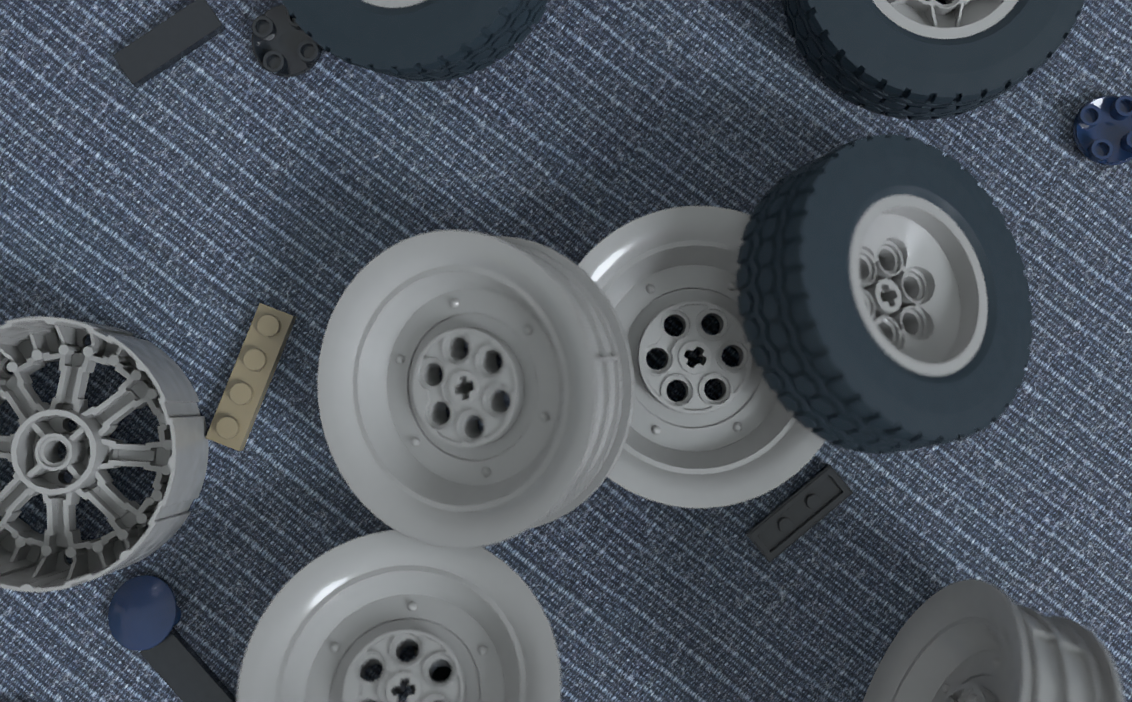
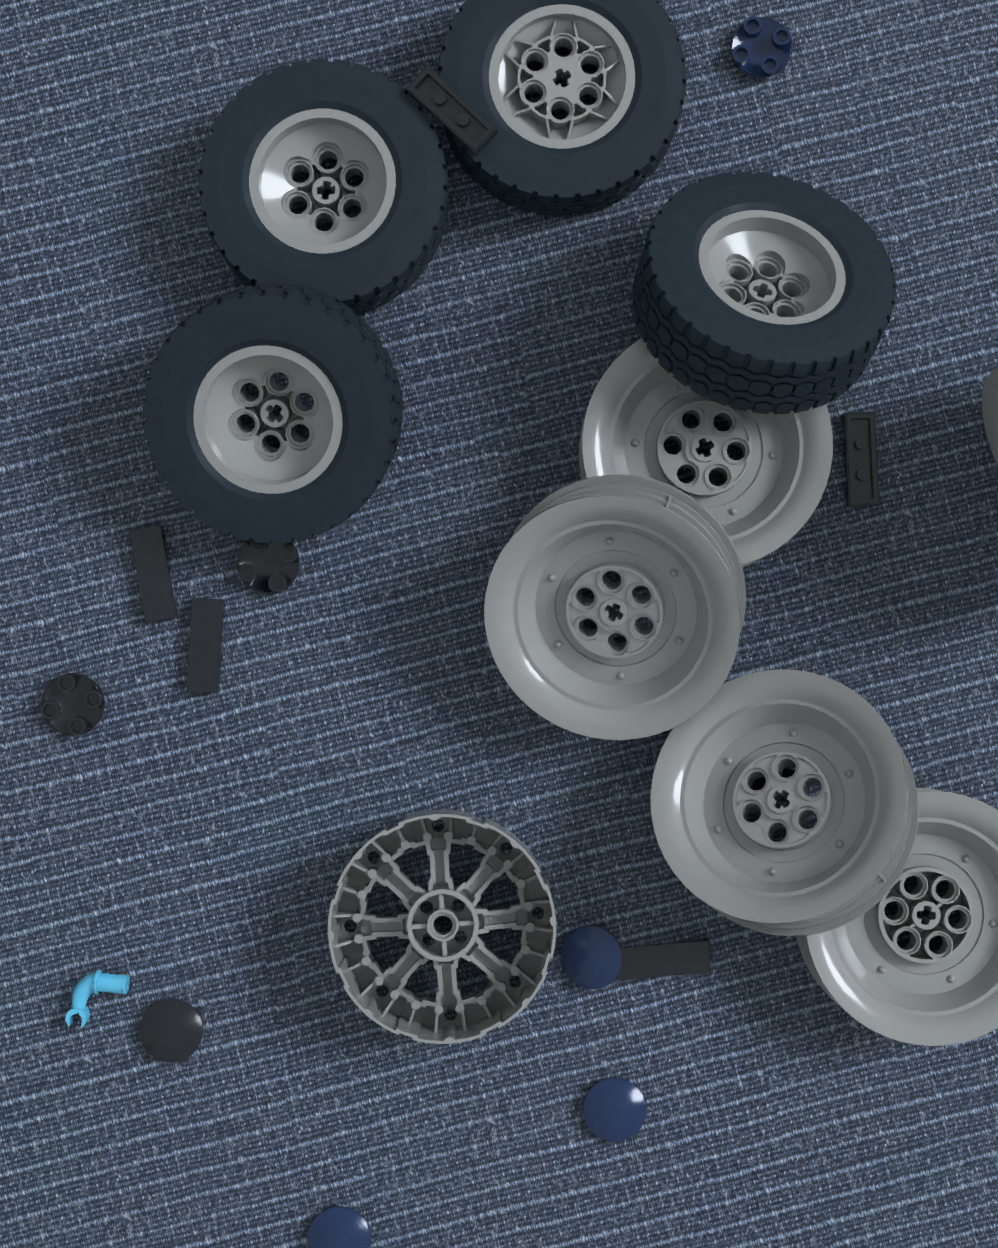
camera: 50 degrees left, 0 degrees up
(251, 377) = (483, 763): dark tan plate -> none

